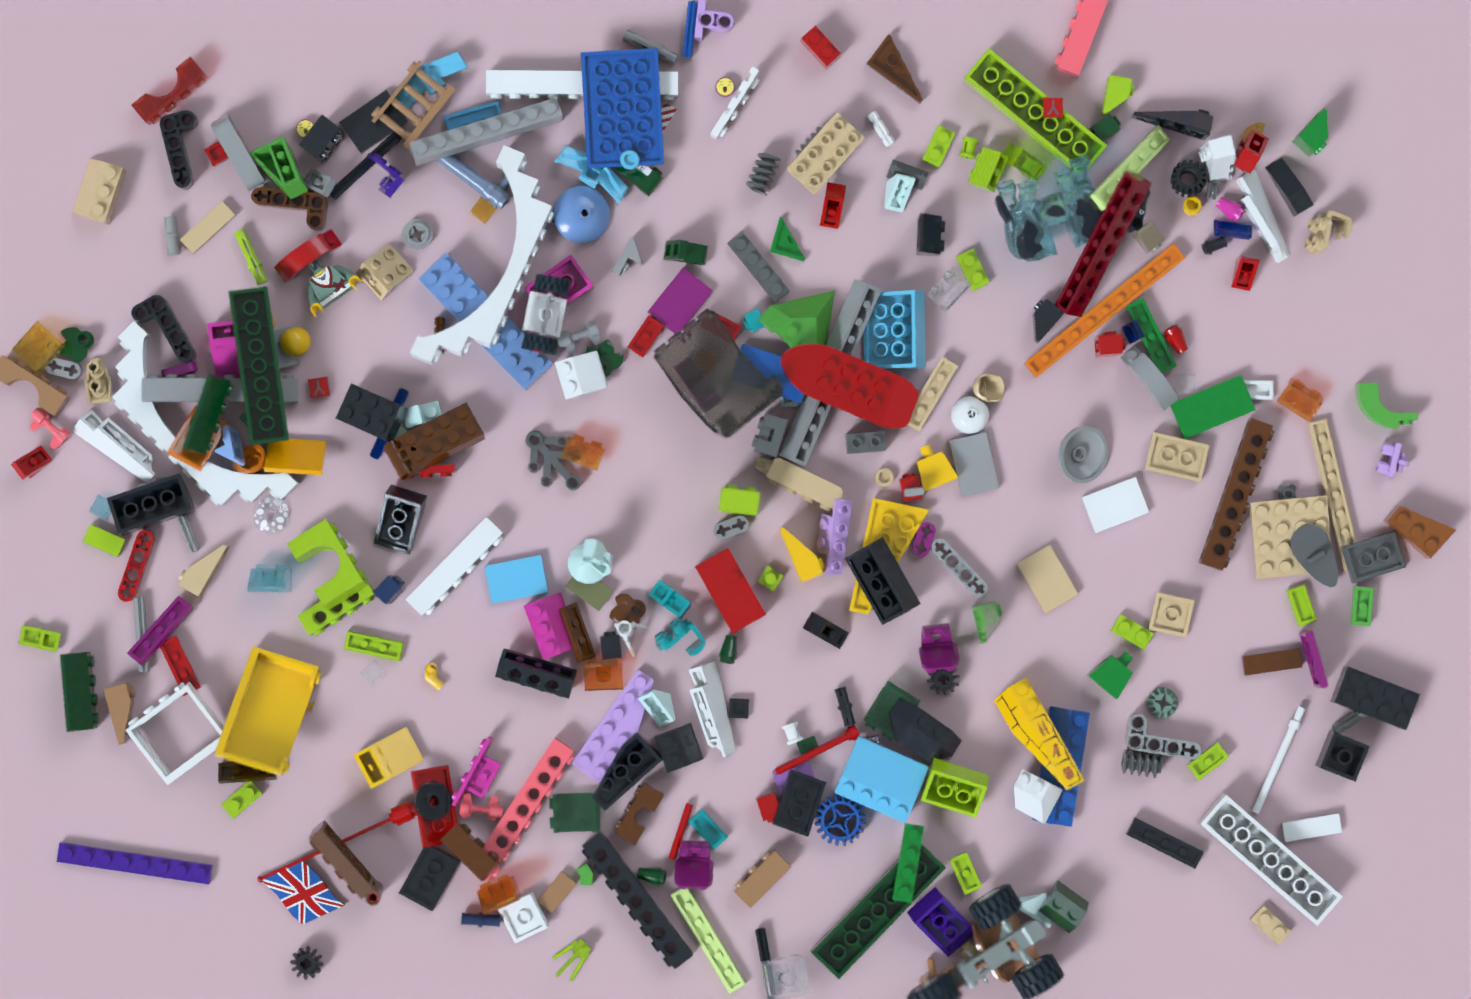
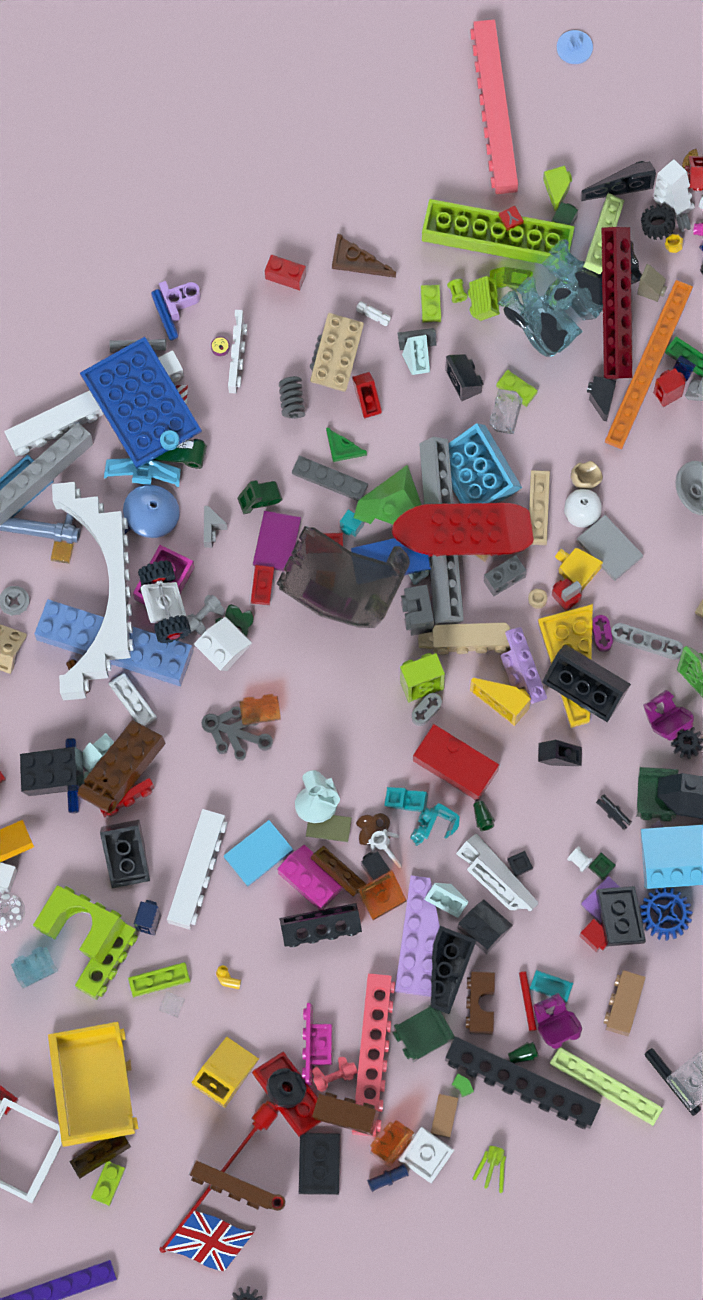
camera: 20 degrees left, 15 degrees down
(476, 382) = (132, 700): none -> white tile
(770, 578) = (485, 736): lime plate -> none
(850, 734) = (633, 833): red piece -> none

